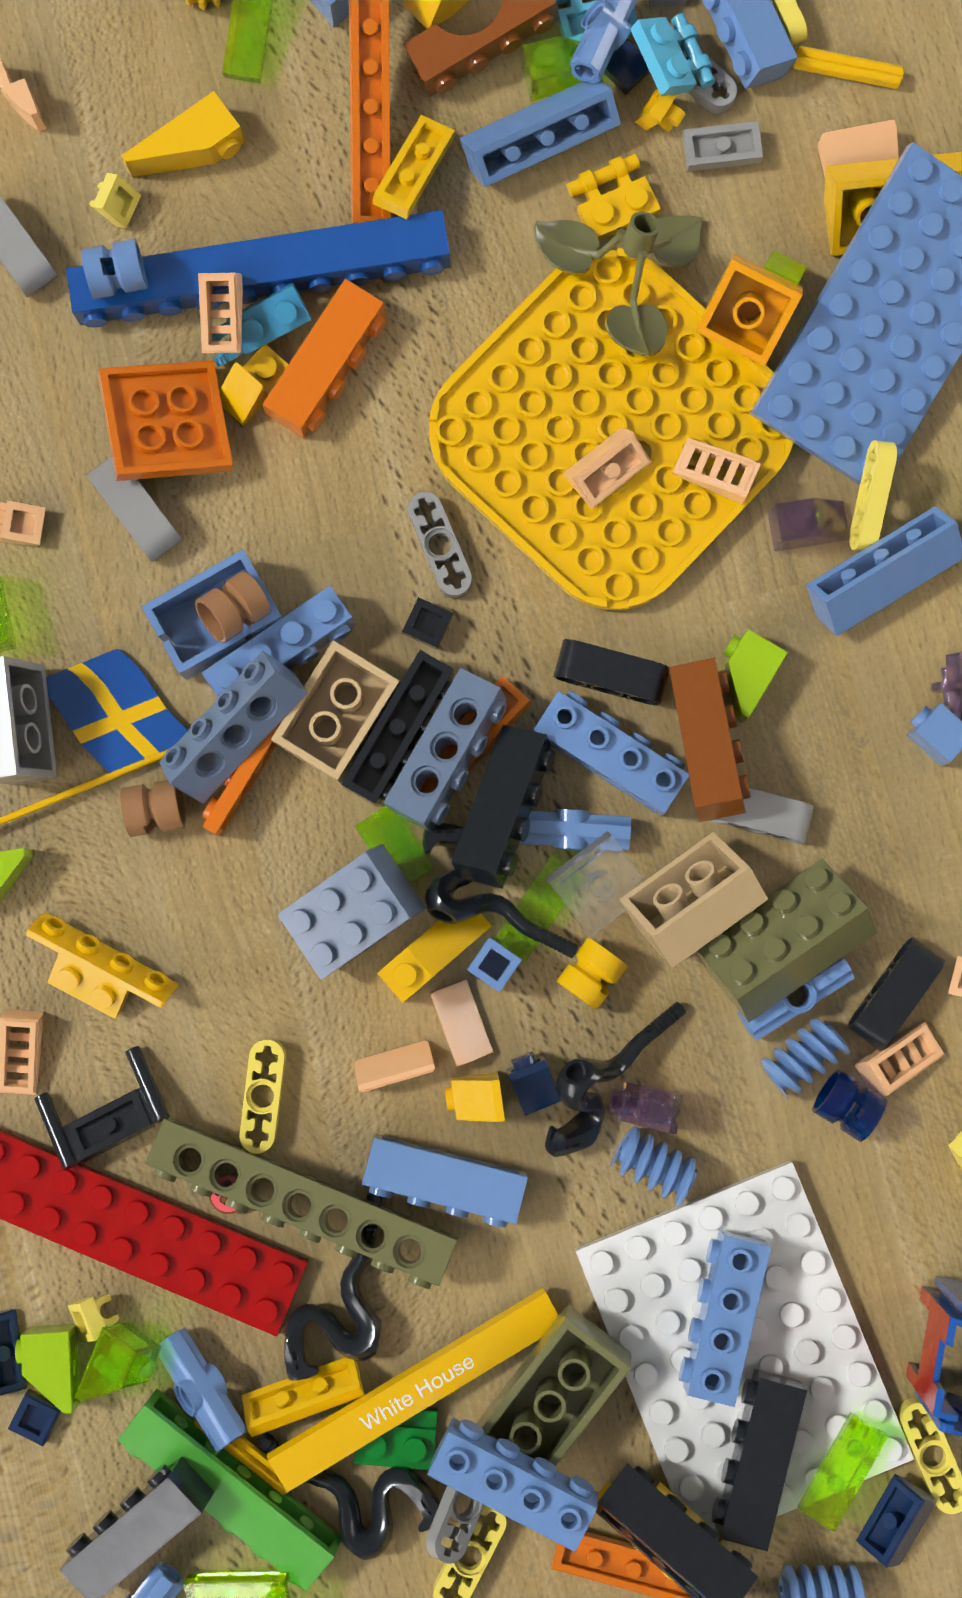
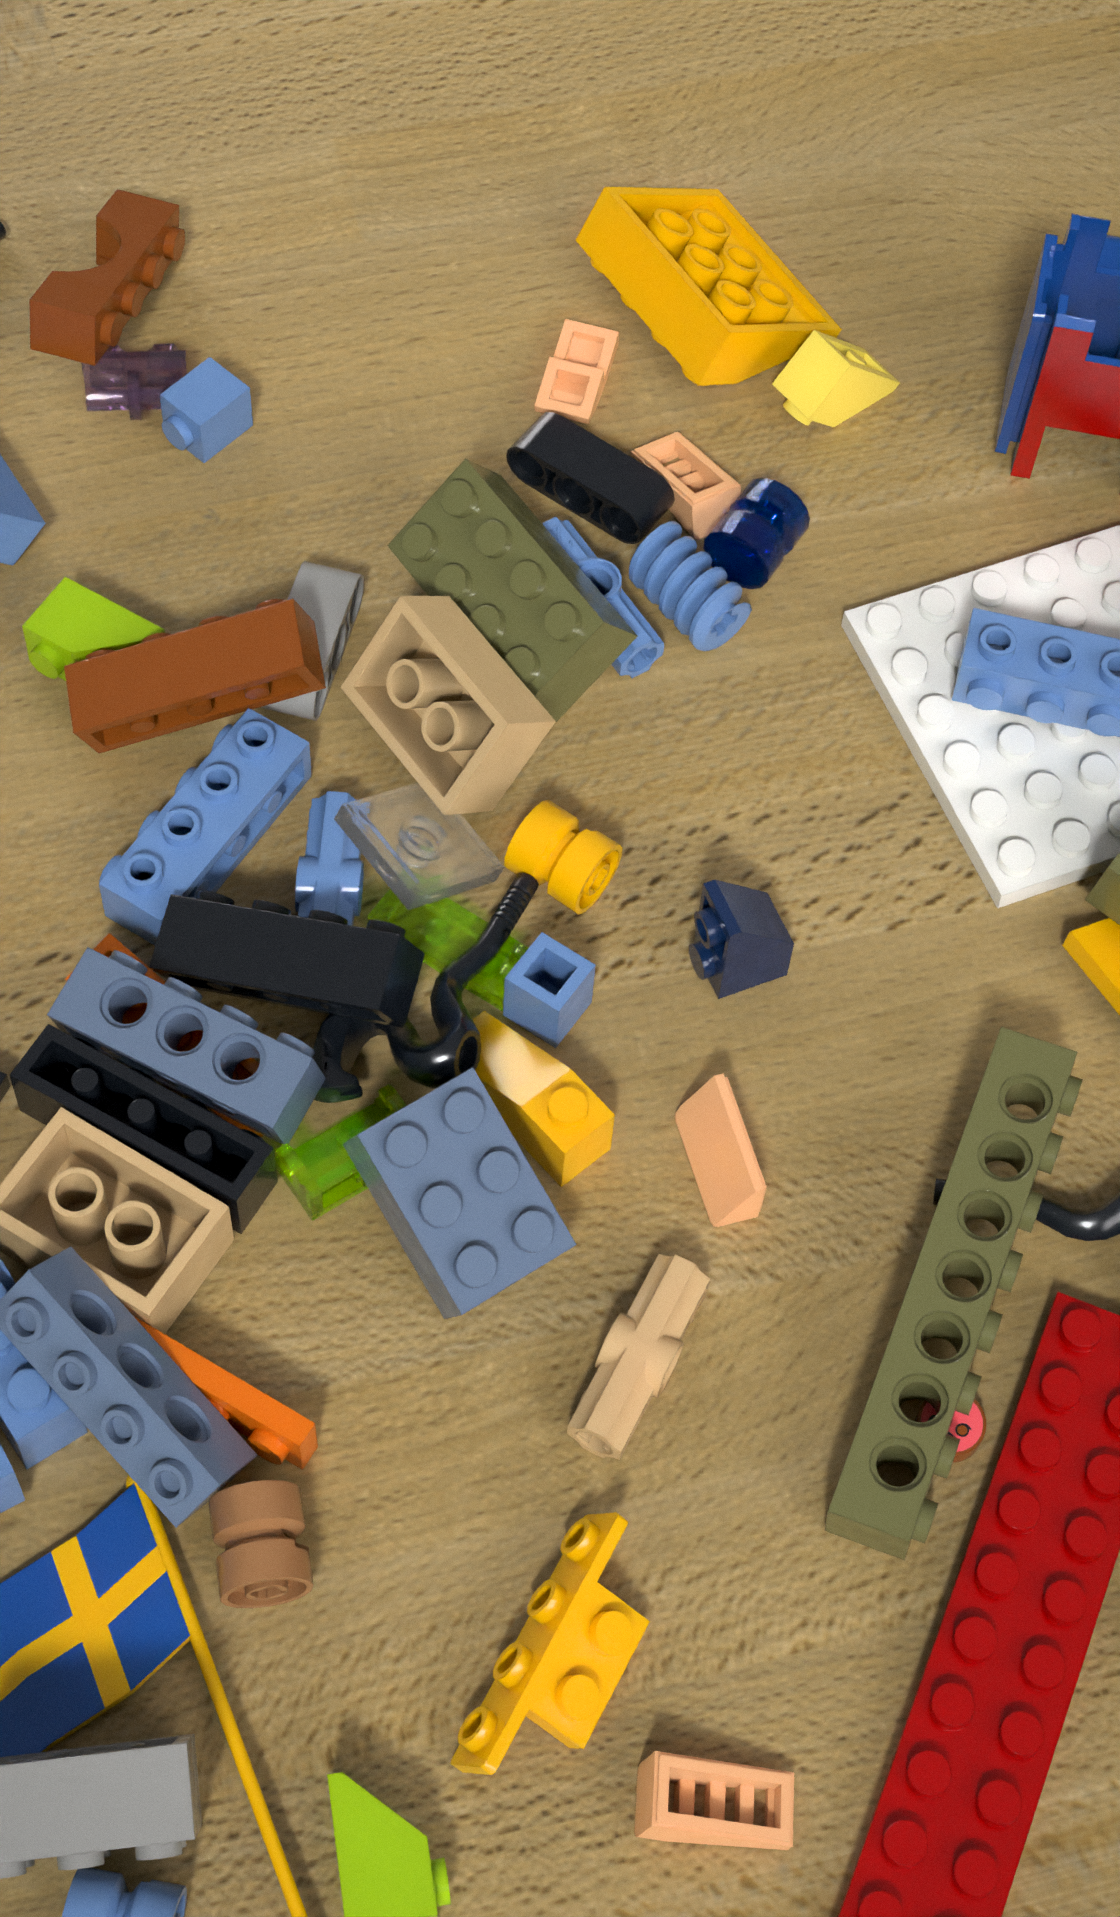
camera: 90 degrees left, 25 degrees down
(108, 1124) = (841, 1626): black plate -> none
(265, 1016) = (638, 1356): none -> tan piece
(268, 1126) = (732, 1340): light yellow beam -> none
(444, 1179) = (902, 1073): medium blue brick -> none
(461, 1022) = (646, 1058): light nougat slope -> none
(476, 1097) = (767, 995): yellow slope -> none
(583, 1073) = (739, 851): black animal -> none
(611, 672) = (73, 825): black beam -> none
(646, 1107) = (771, 780): clear purple hips -> none
(656, 1164) = (860, 780): medium blue piece -> none

